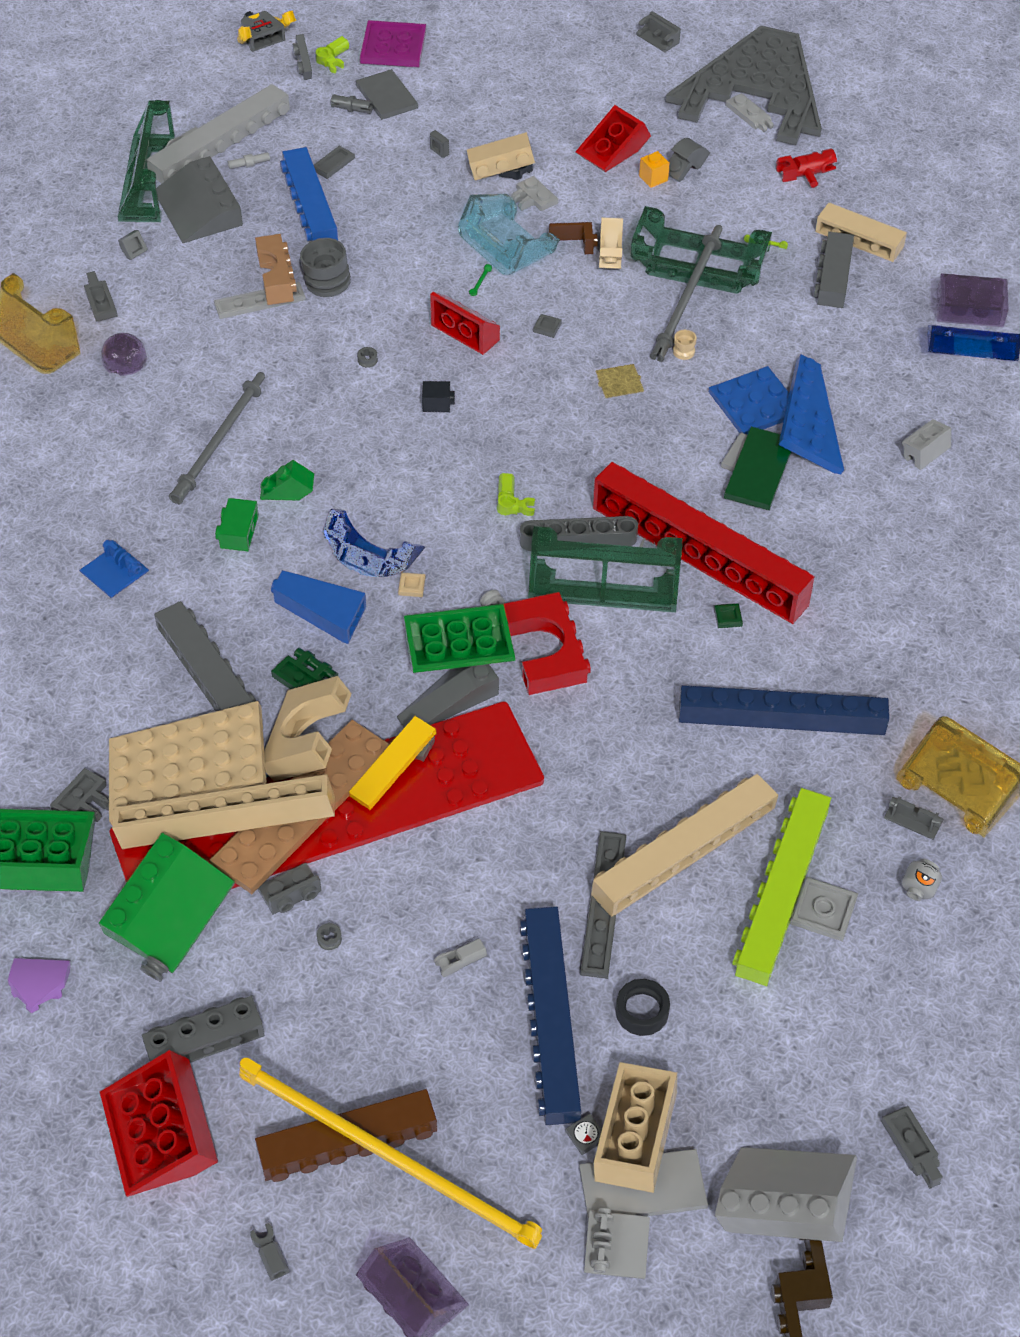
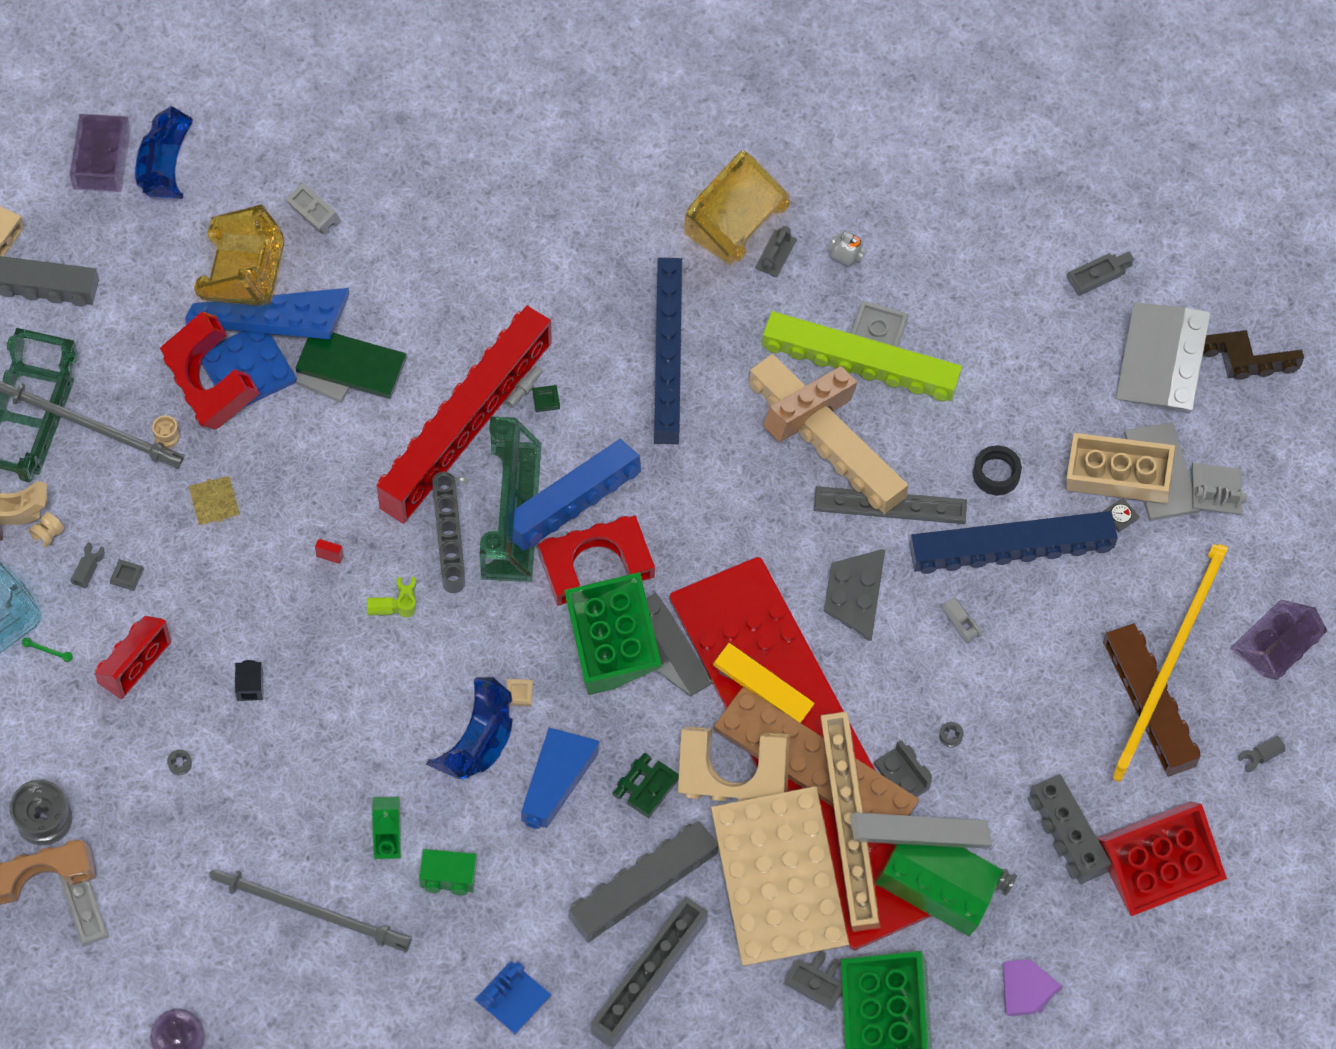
camera: 95 degrees left, 10 degrees up
(112, 661) = (649, 972): none -> dark grey brick
(207, 878) = (920, 830): none -> light grey tile
(492, 598) = (543, 611): light grey bush -> none
(502, 863) = (855, 591): none -> dark grey wing
(556, 300) = (87, 566): none -> dark grey bar
(561, 450) = (329, 551): none -> red tile
(589, 273) = (46, 529): none -> tan wheel
(613, 622) = (574, 493): none -> blue brick
(718, 371) = (184, 356): none -> red arch
(733, 843) = (791, 412): none -> medium nougat arch
(740, 597) = (524, 386): none -> light grey bar
(860, 397) = (245, 258): none -> clear yellow windscreen

